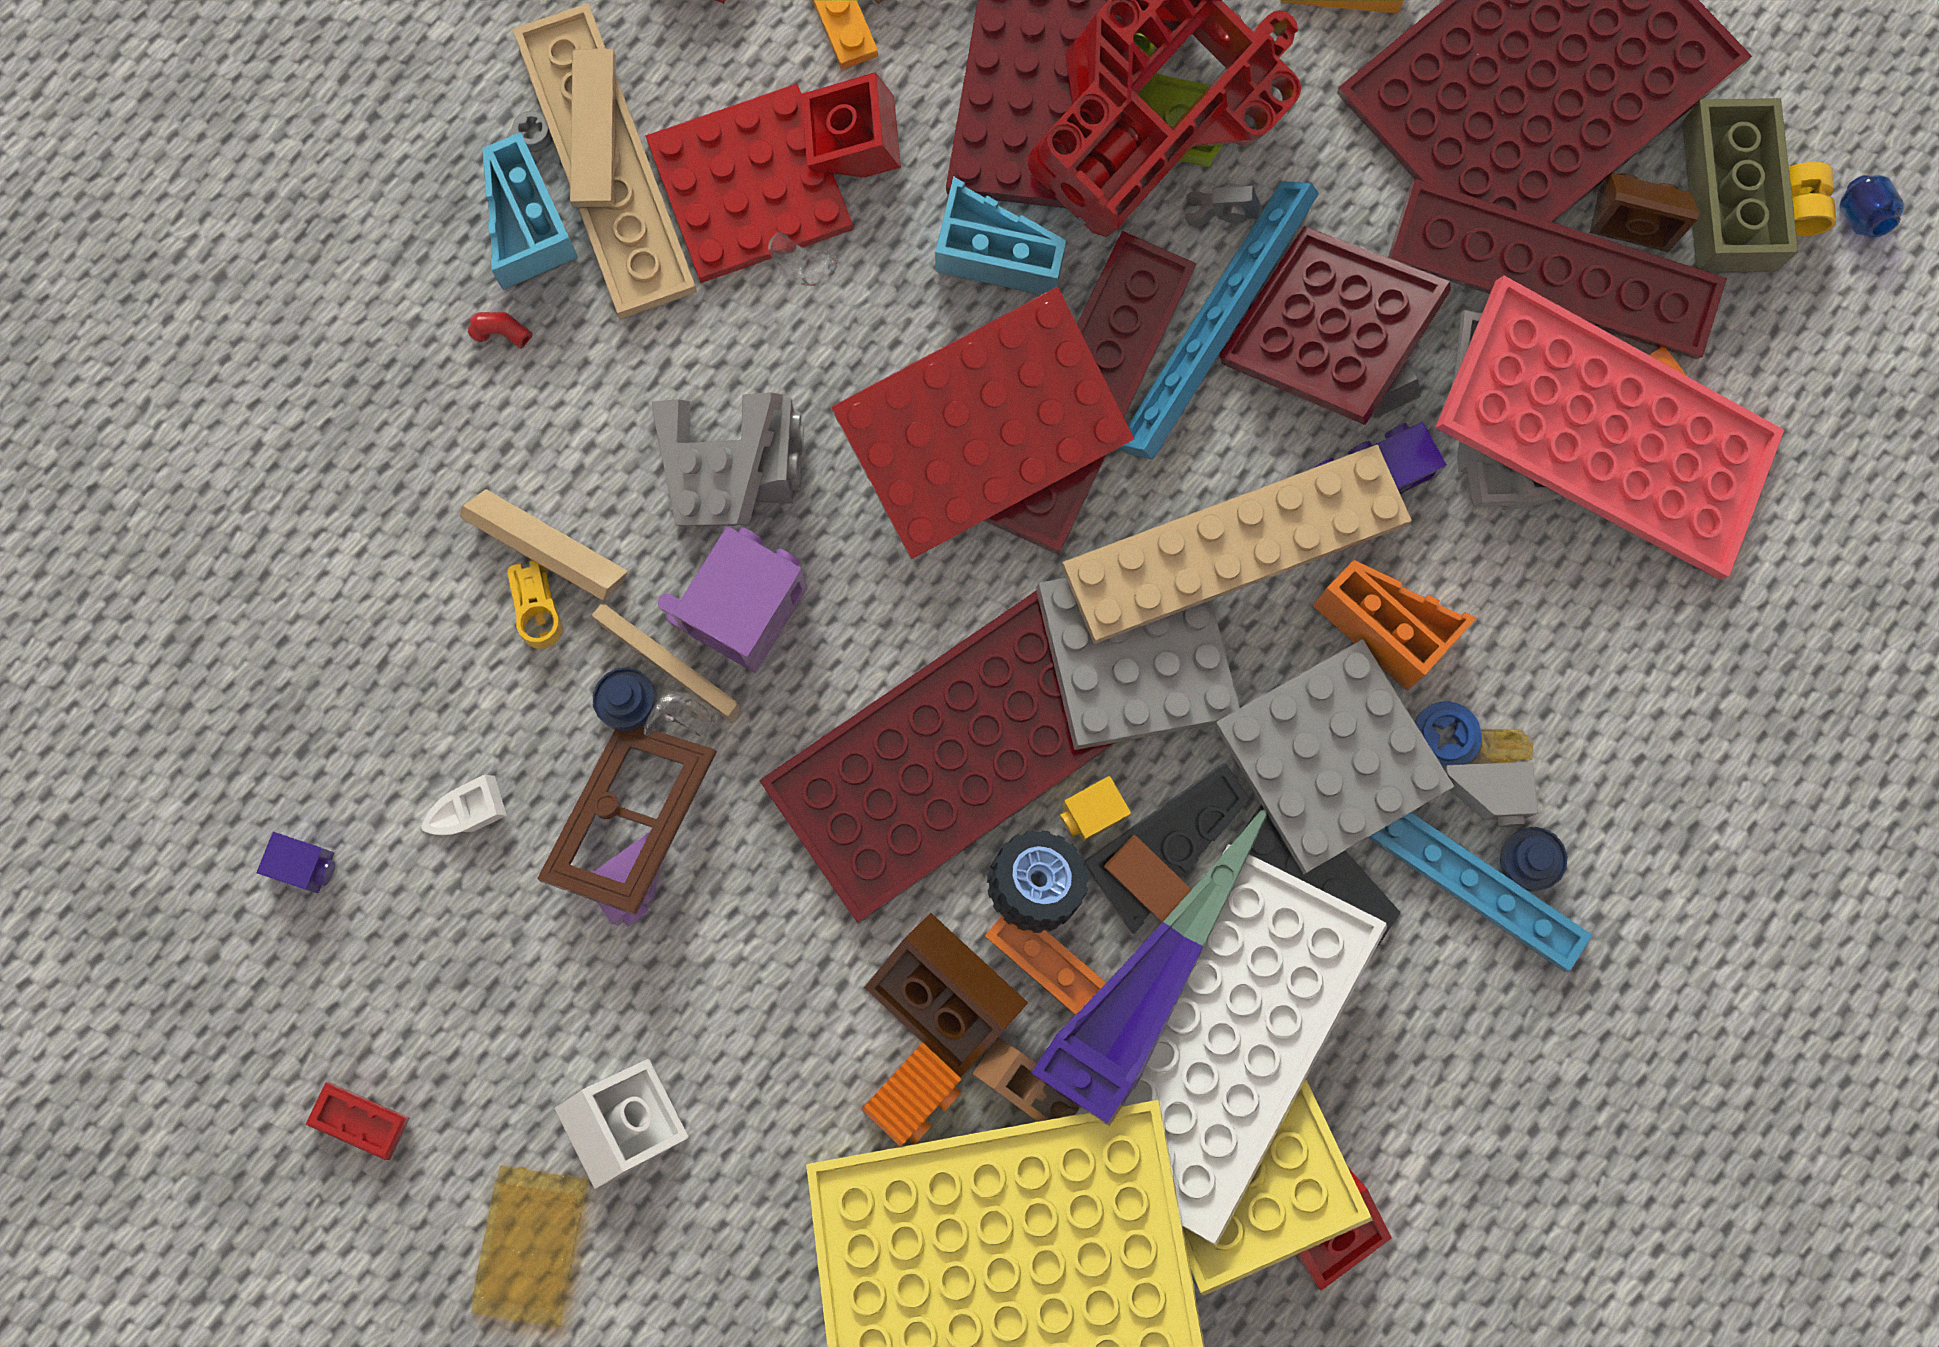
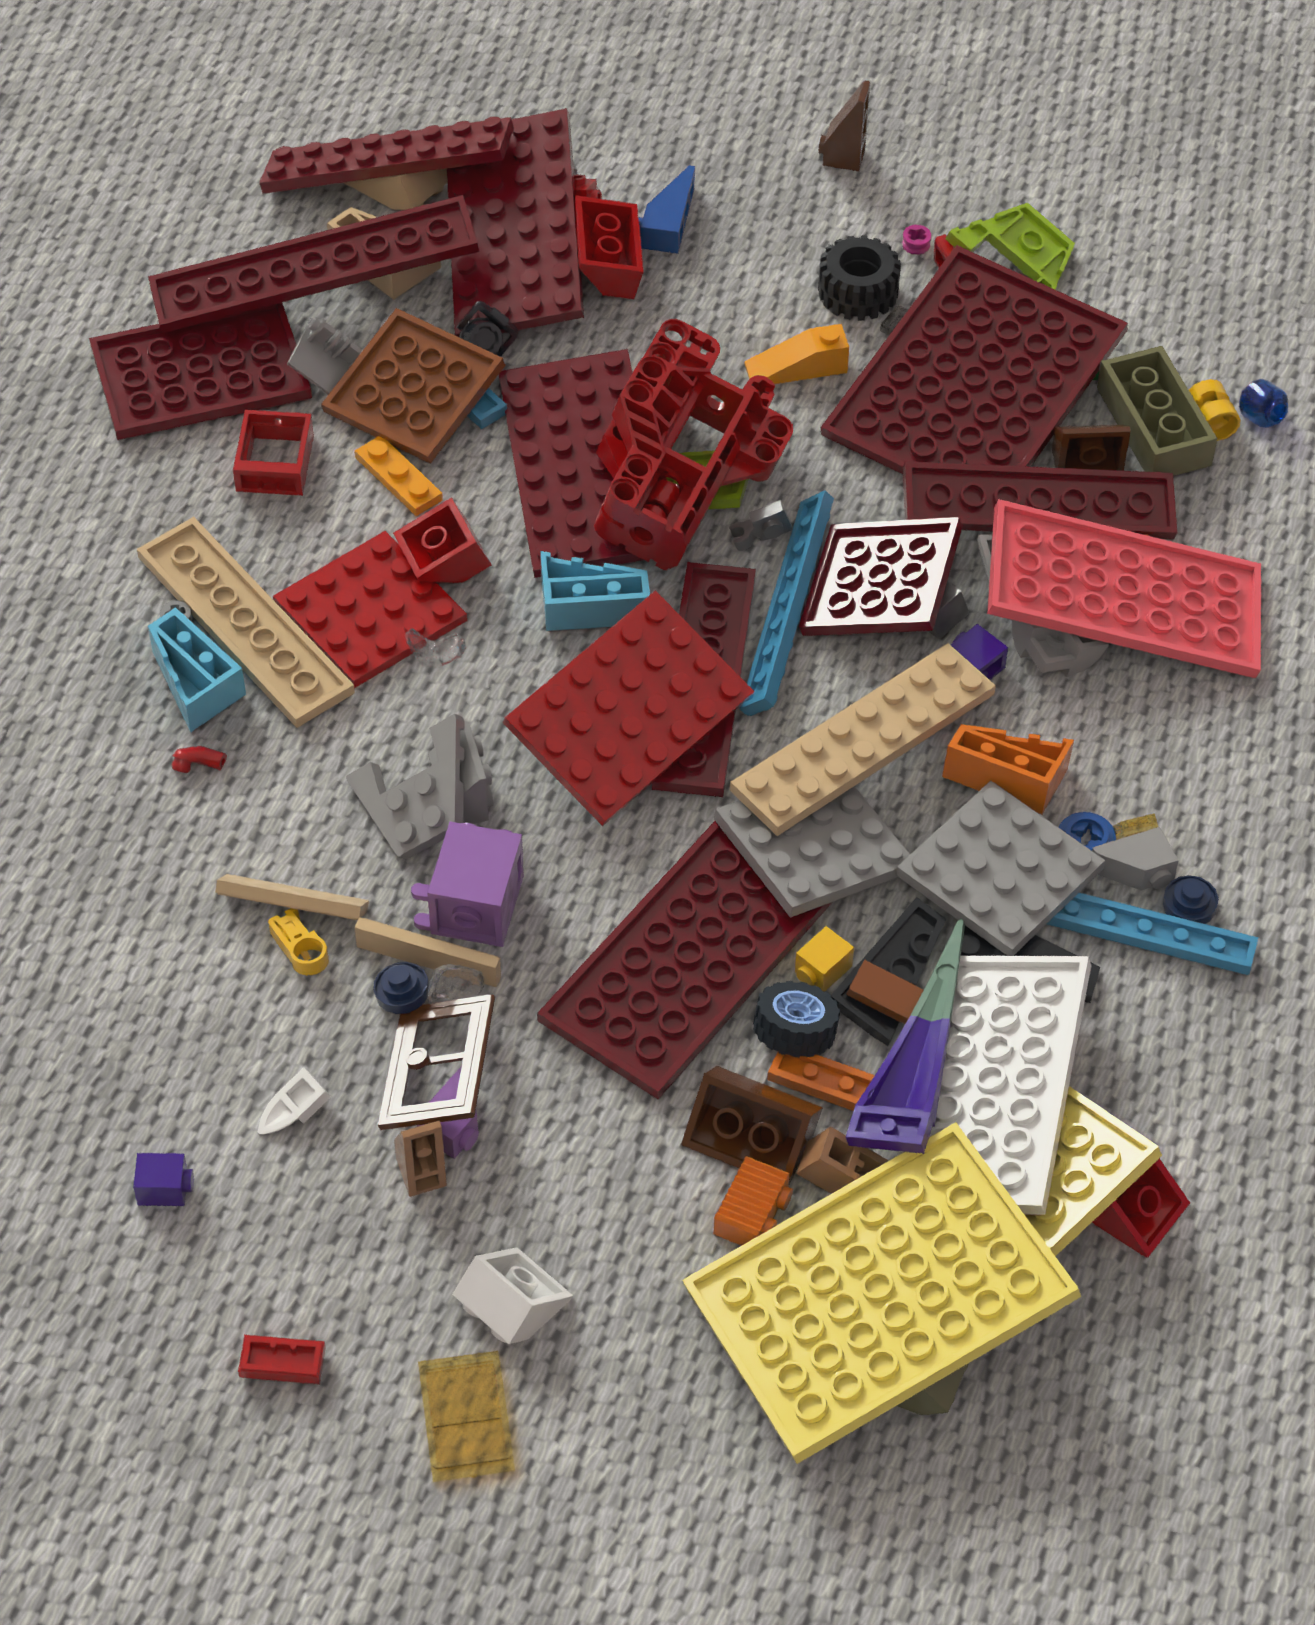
camera: 15 degrees left, 25 degrees down
(568, 929) = (421, 1158): none -> medium nougat slope
(592, 128) = (230, 597): tan tile -> none

